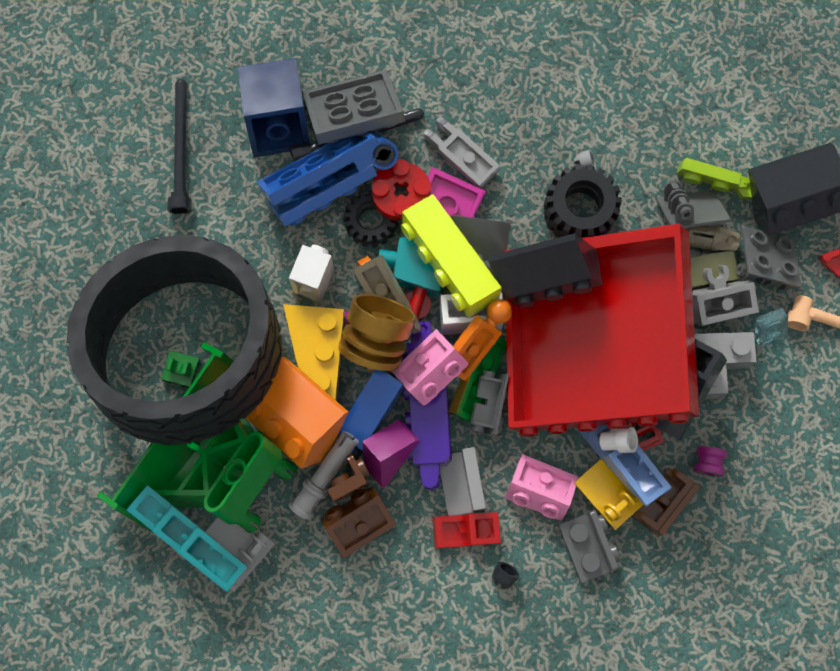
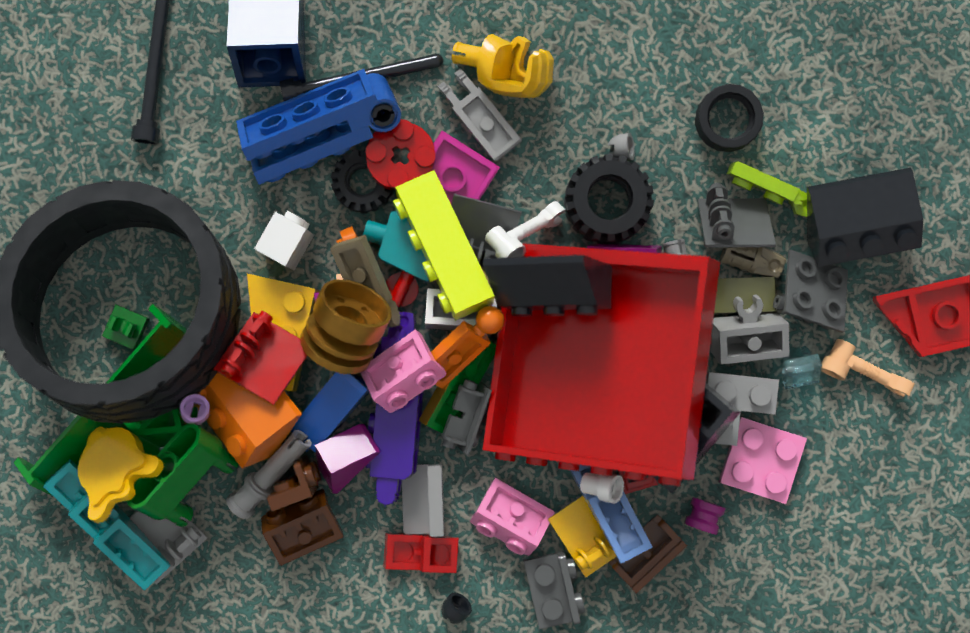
camera: 10 degrees right, 10 degrees up
(186, 483) = (110, 468): none -> yellow tile
(254, 412) = (187, 406): none -> lavender hinge
(308, 369) = (262, 358): none -> red hinge
(353, 107) = (357, 47): dark grey plate -> none
(475, 110) = (502, 66): none -> yellow piece
(532, 228) = (508, 243): none -> white brick
(679, 107) = (740, 94): none -> black tyre
(752, 408) = (763, 460): none -> bright pink plate

